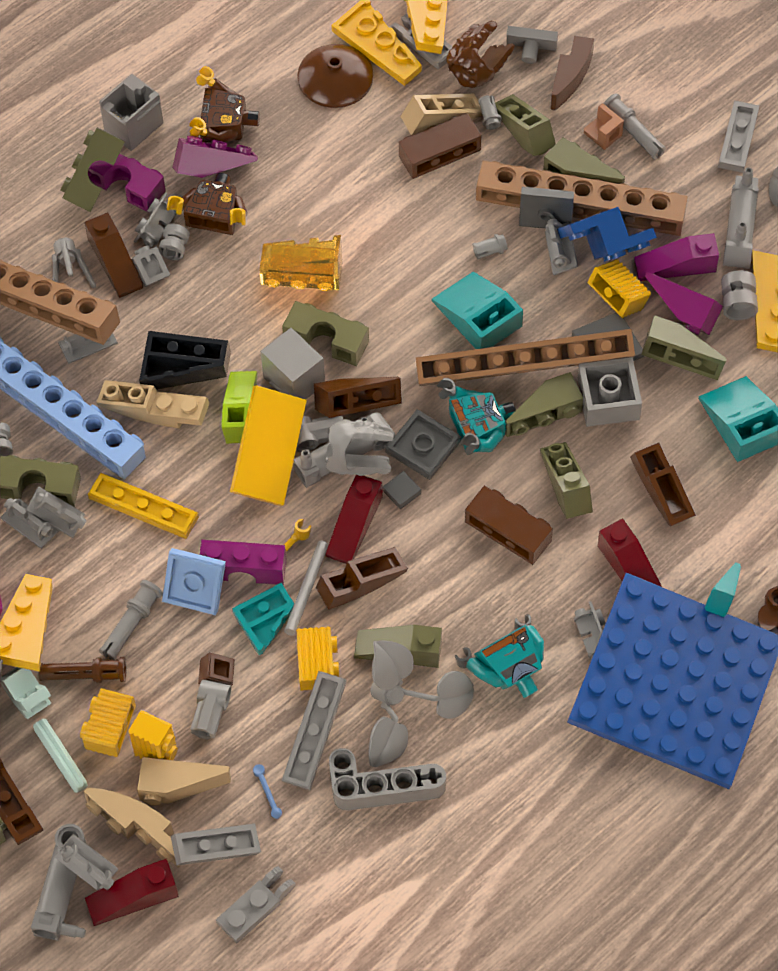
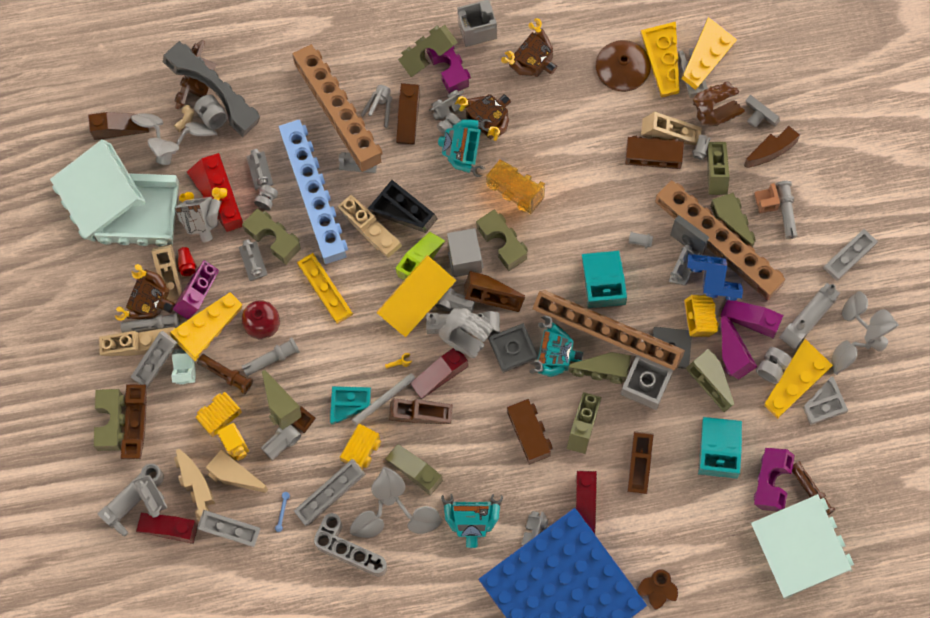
camera: 35 degrees right, 10 degrees up
(56, 512) = (270, 264): light grey hinge -> none
(60, 755) = (180, 417): light aqua axle -> none
(86, 584) = (260, 319): none -> dark red cylinder
(150, 265) = (425, 132): light grey bracket -> none
(181, 661) = (282, 407): none -> olive slope
(193, 581) = (319, 356): light blue plate -> none
(205, 159) = (505, 81): magenta slope -> none
(206, 252) = (461, 144): none -> teal torso
(254, 906) = (230, 577): light grey hinge -> none
(261, 561) = (349, 354): magenta arch -> none
(402, 490) = (481, 369): dark grey tile -> none
(724, 592) = (625, 556): teal slope -> none

